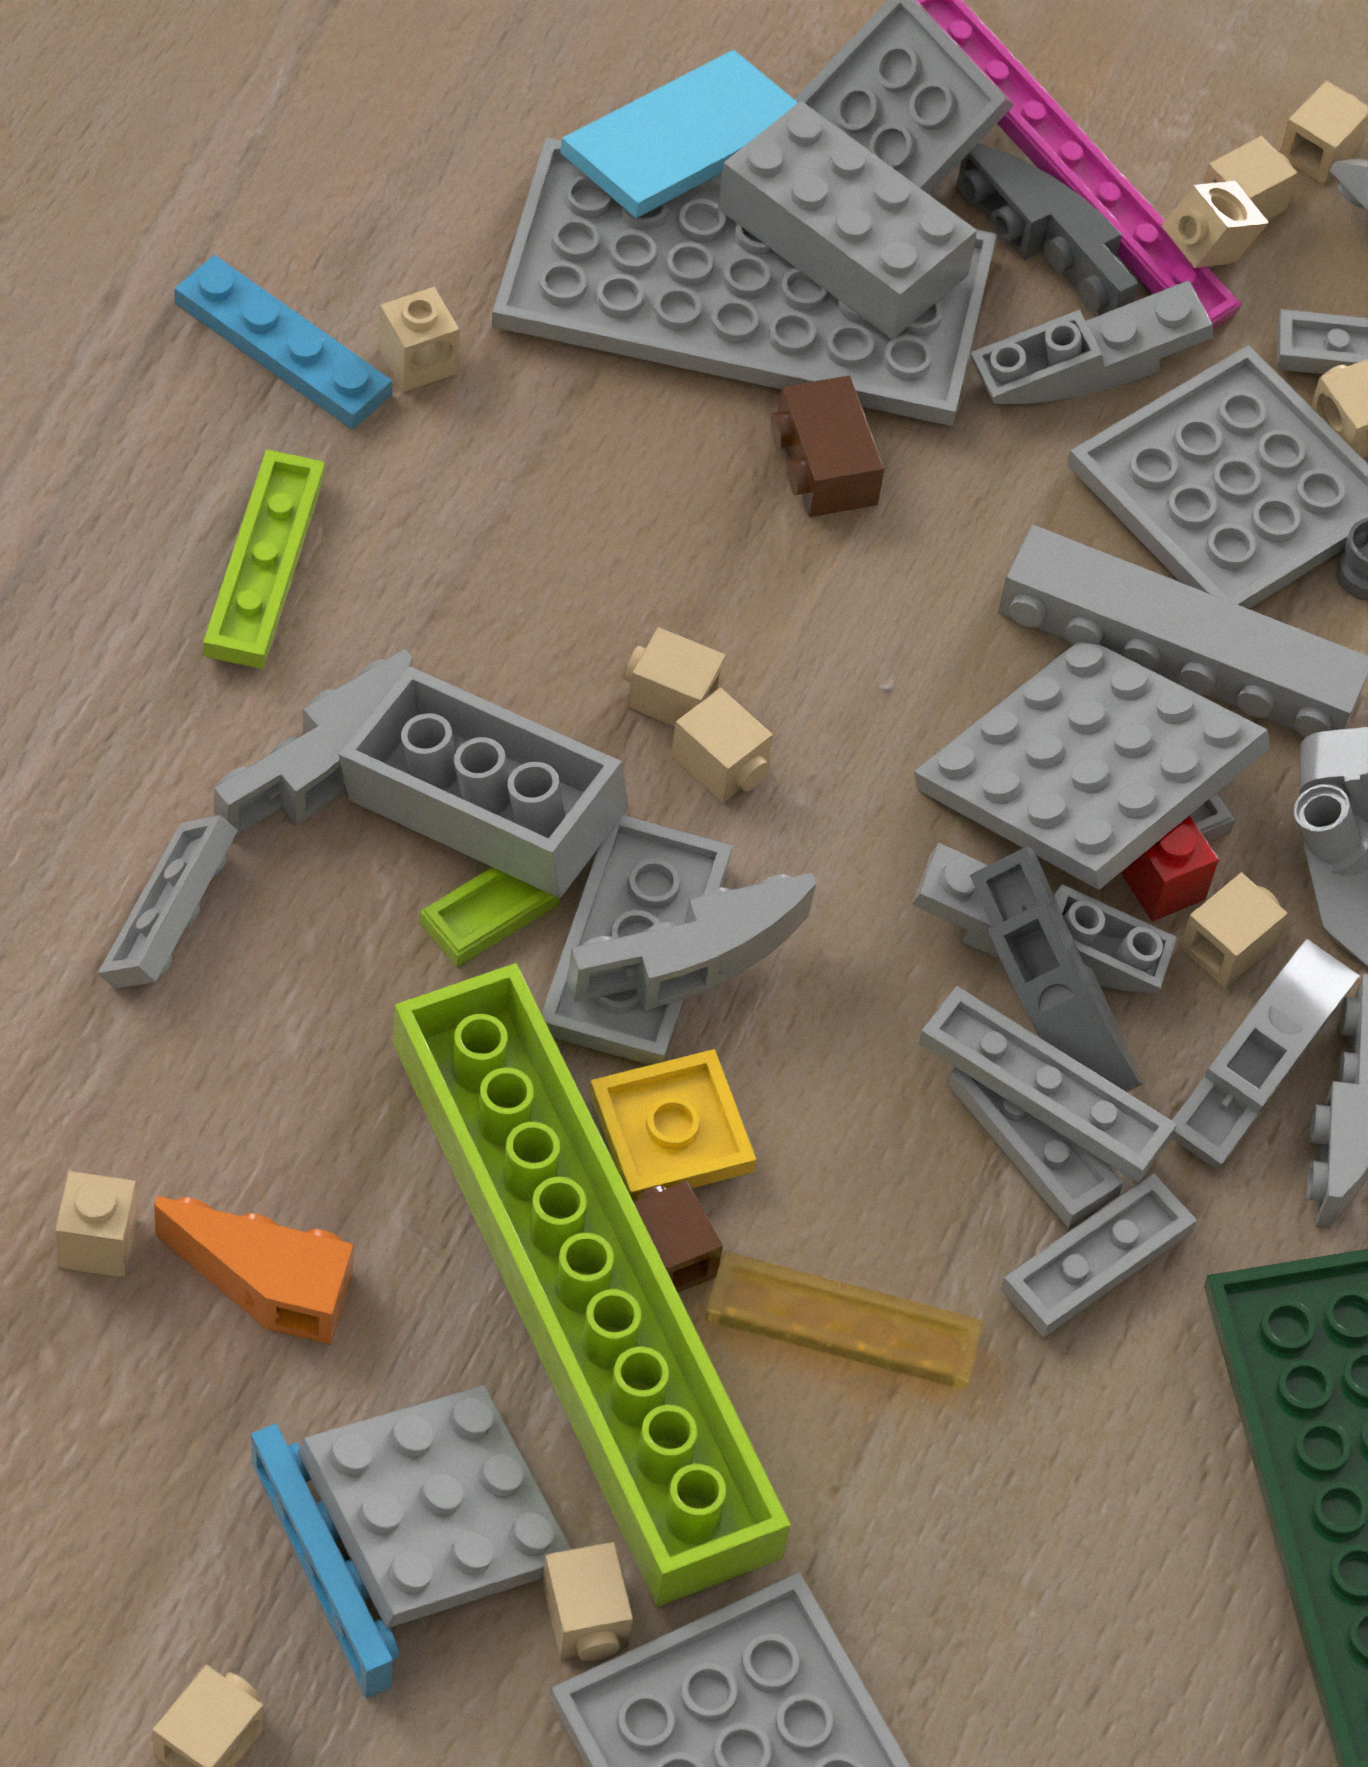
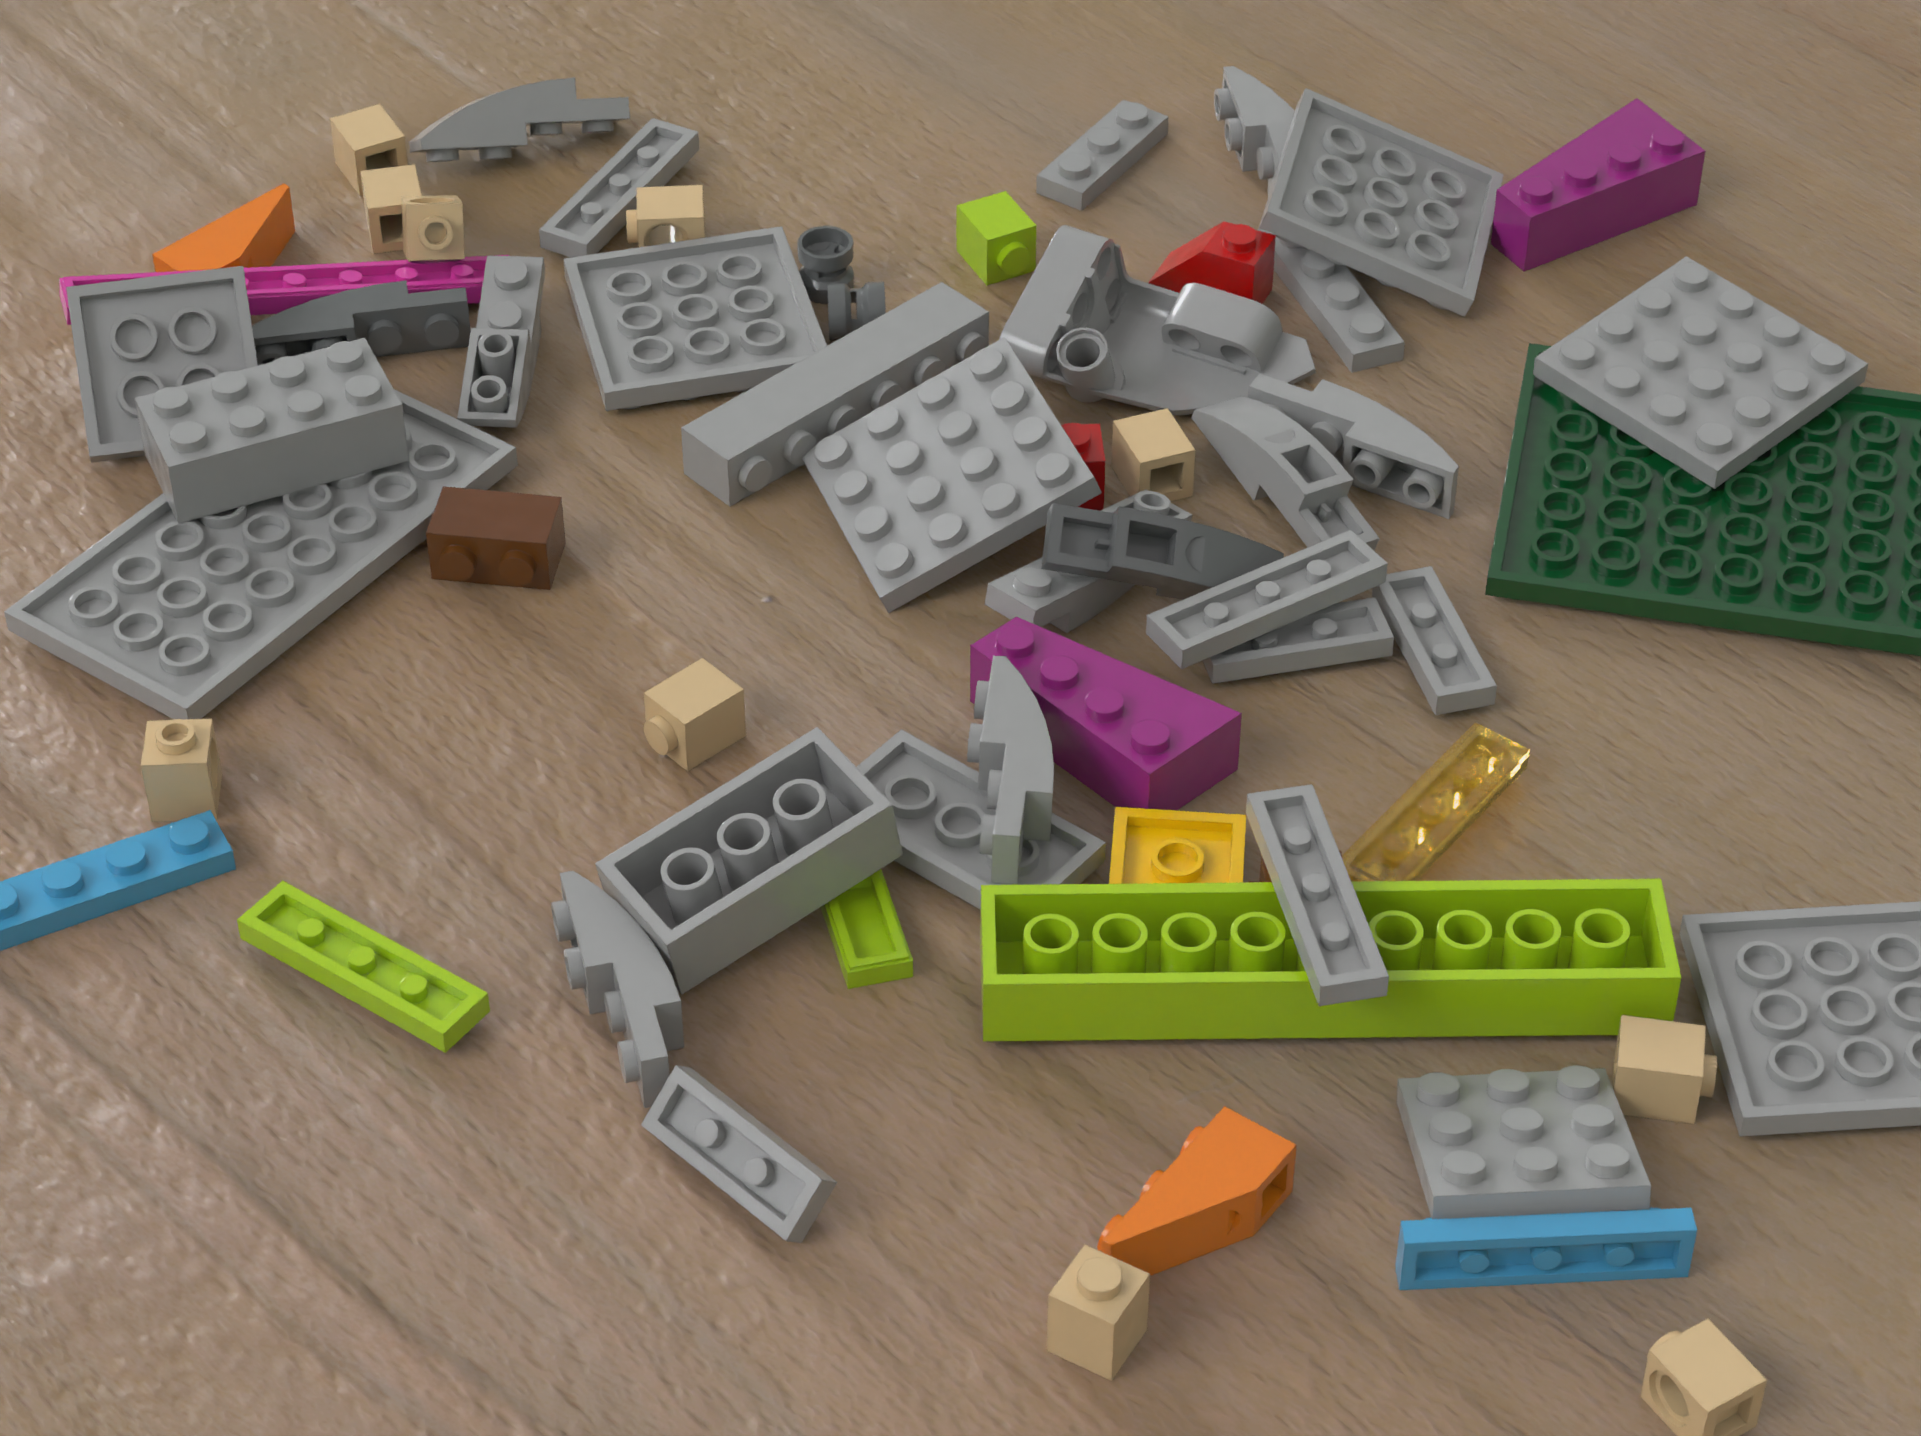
camera: 60 degrees left, 15 degrees down
(606, 1227) = (1316, 895): none -> light grey plate
(677, 133) = (77, 515): medium azure tile -> none
(722, 746) = (785, 703): tan brick -> none
(818, 1019) = (1114, 724): none -> magenta wedge
(1114, 93) = (243, 237): none -> orange slope
(1314, 605) = (869, 306): none -> dark grey wheel

